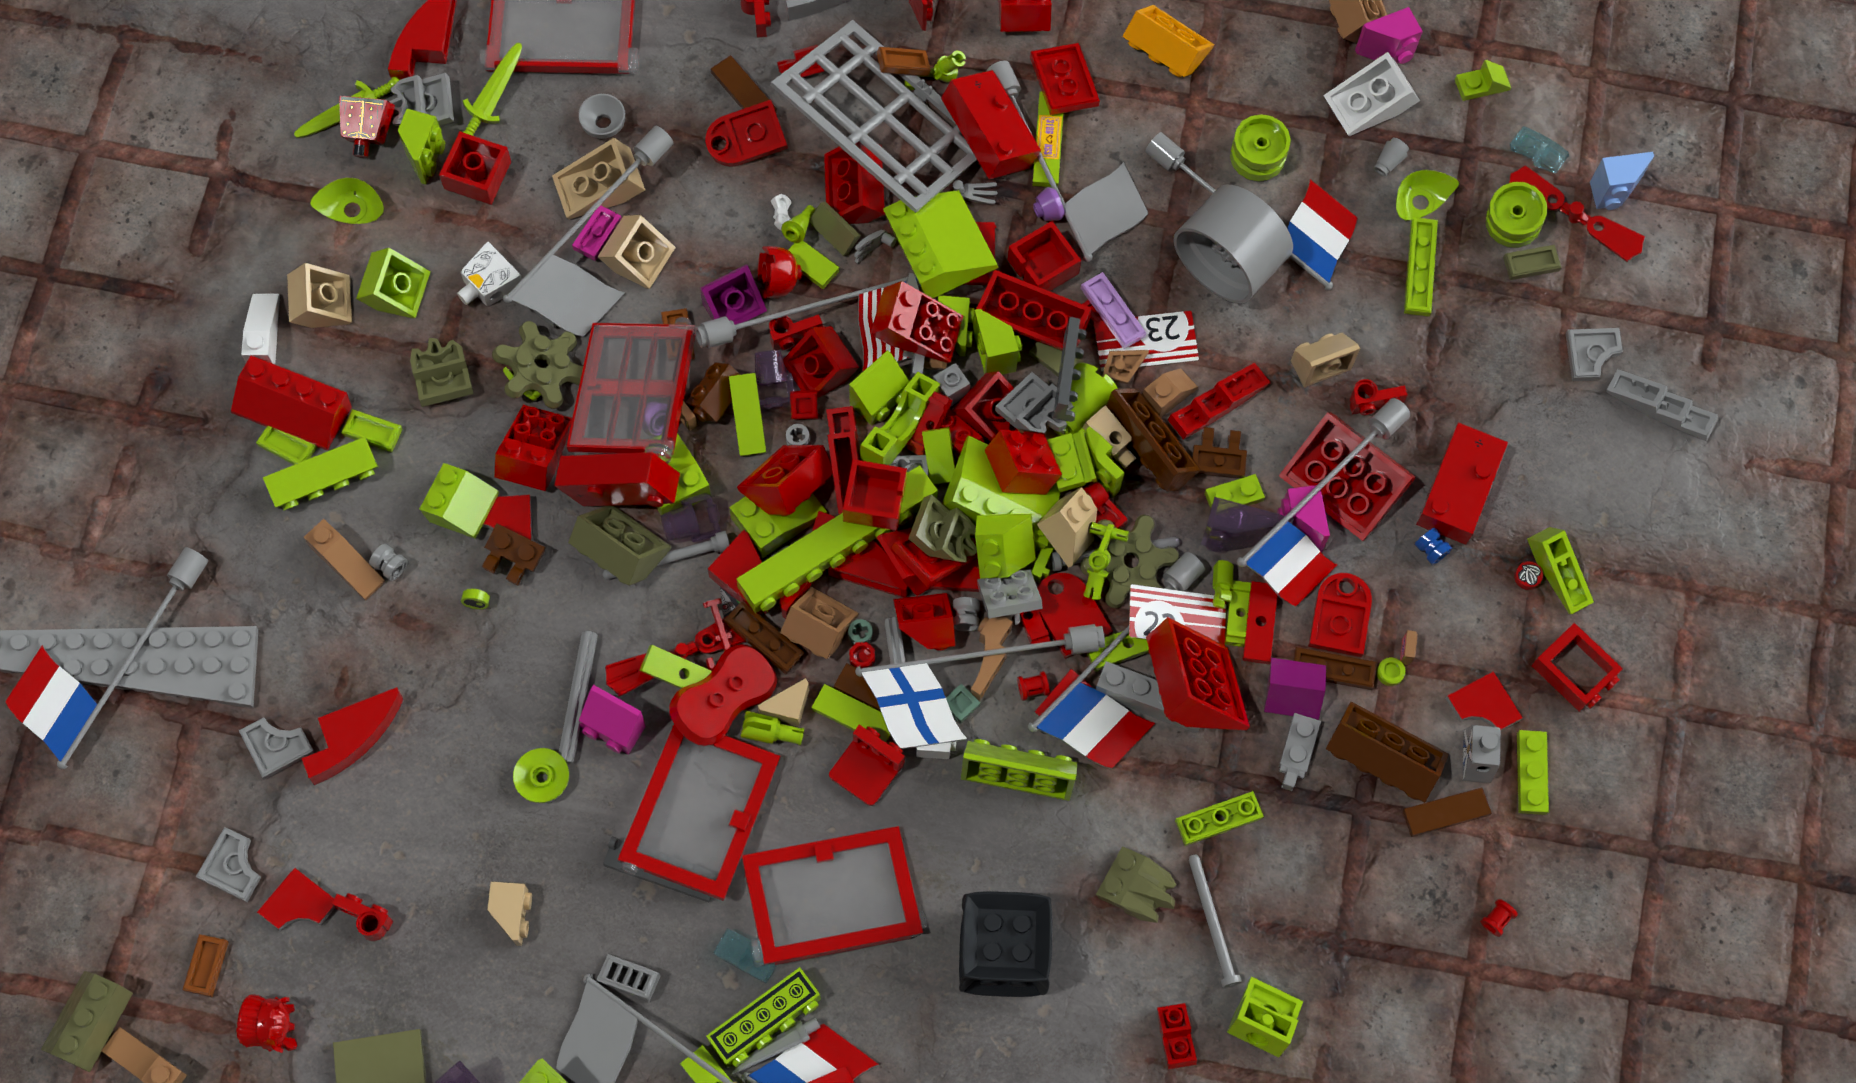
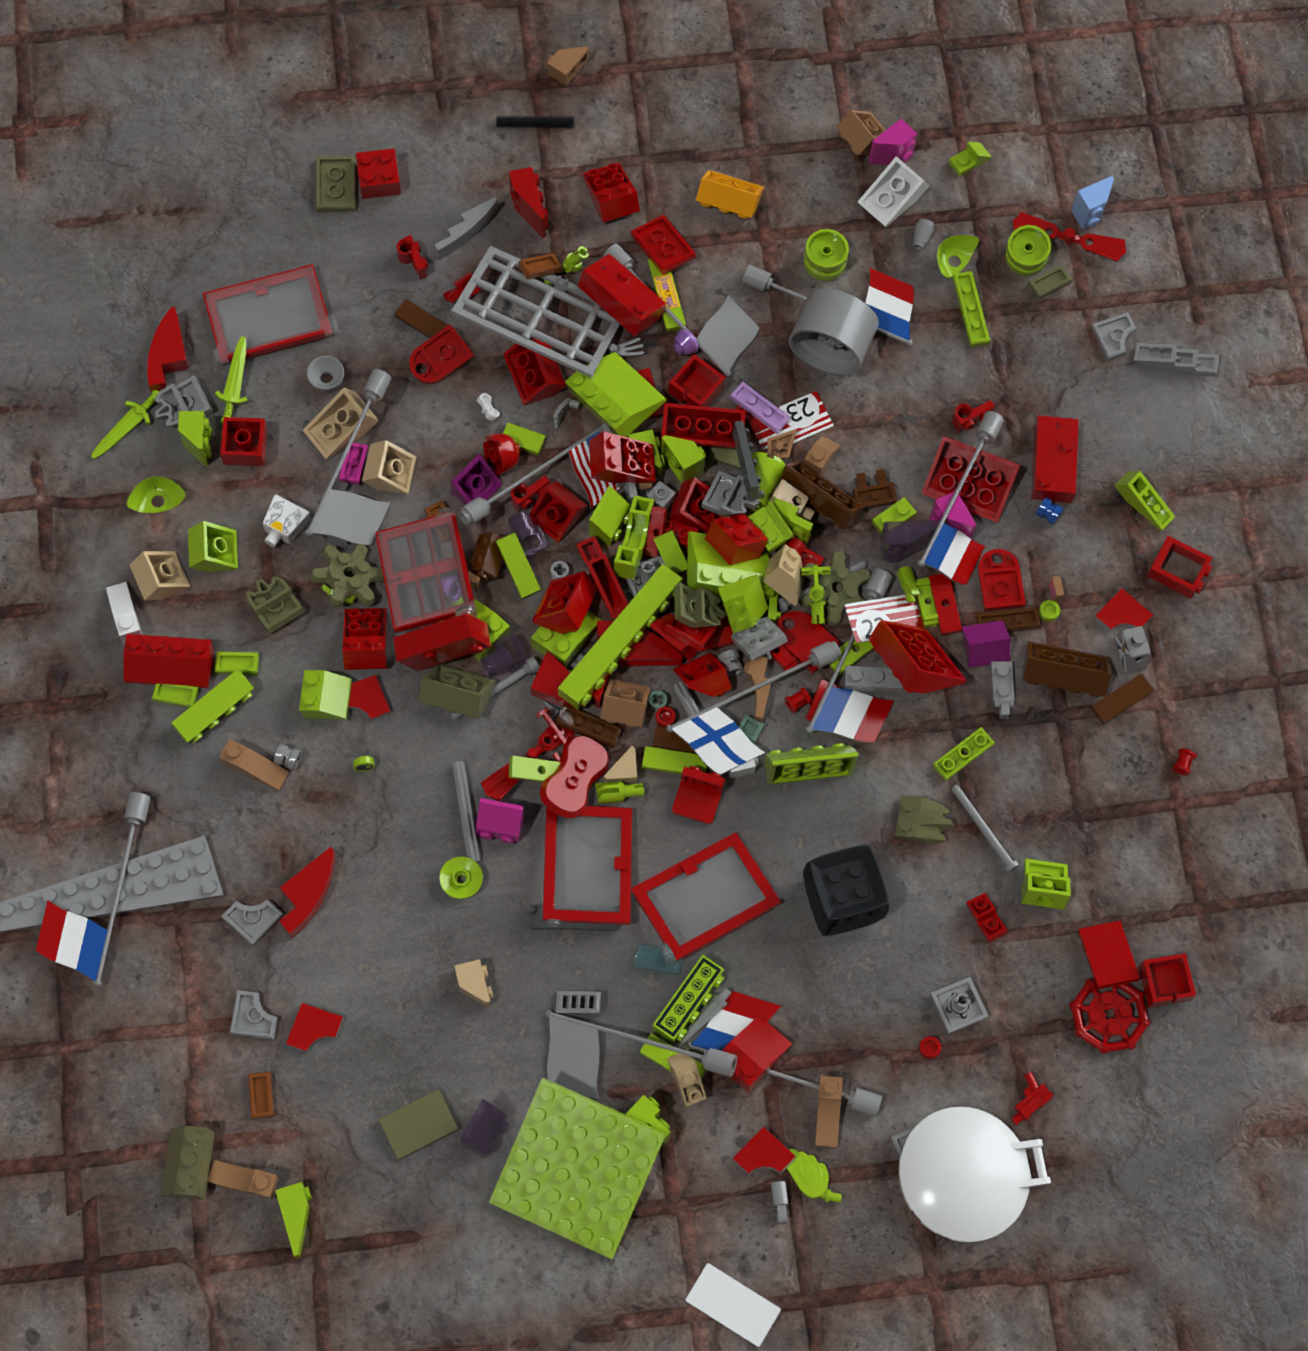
camera: 20 degrees left, 0 degrees up
(265, 1023) = (325, 1120): red hair -> none
(352, 906) = (357, 1017): red plate -> none
(364, 122) = (145, 431): torso -> none
(515, 548) = (379, 717): reddish brown plate -> none
(796, 227) = (503, 416): lime cone -> none
(803, 404) = (556, 545): red tile -> none
(834, 228) = (531, 407): olive tile -> none
(874, 494) = (640, 594): red piece -> none
(1219, 401) = (860, 451): red slope -> none
(1324, 358) = (925, 397): tan slope -> none
(1528, 575) = (1123, 511): tile -> none
(1532, 772) = (1172, 651): lime plate -> none
(1540, 148) = (1031, 197): clear light blue slope -> none

